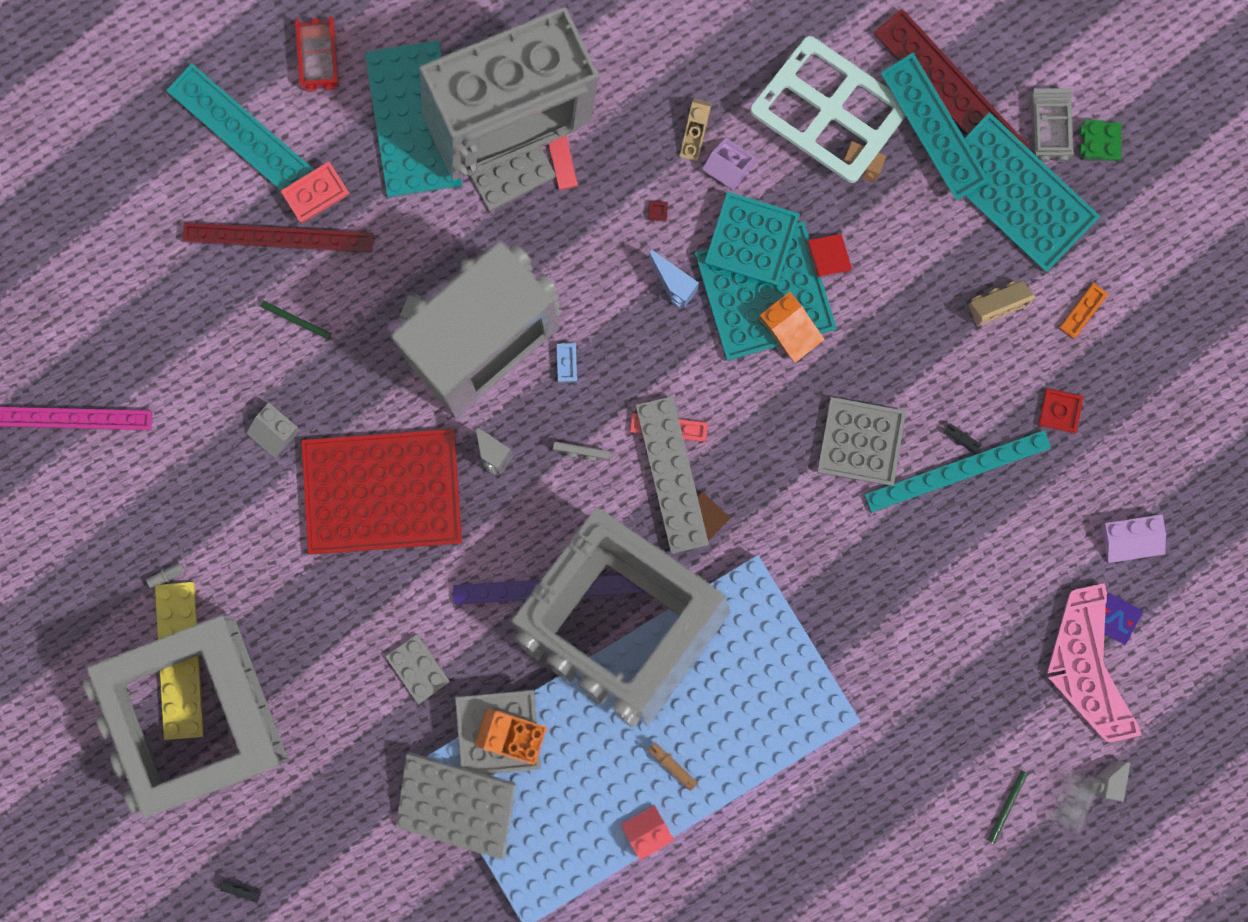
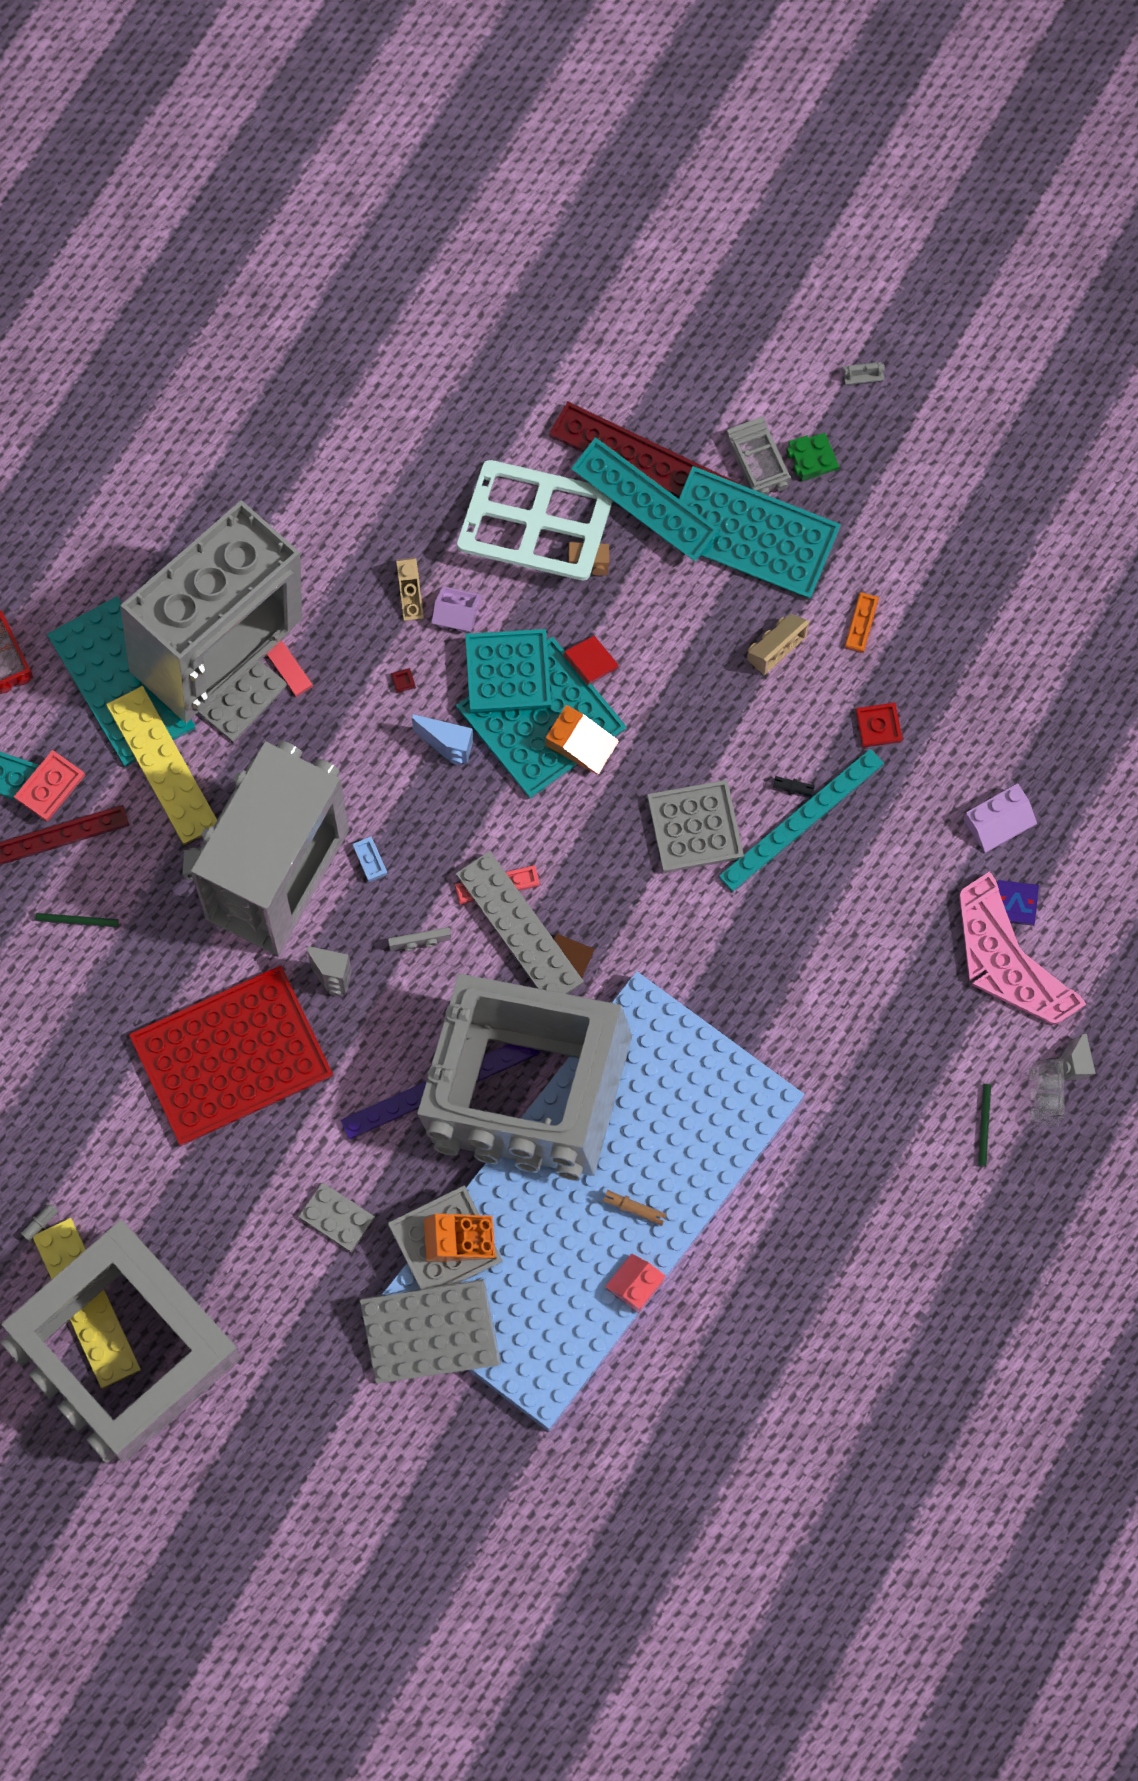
camera: 25 degrees left, 10 degrees down
(240, 891) = (240, 1510): black pin -> none
(272, 430) = (95, 1035): light grey slope -> none
(420, 210) = (162, 764): none -> light yellow plate
(1178, 80) = (863, 373): none -> light grey hinge

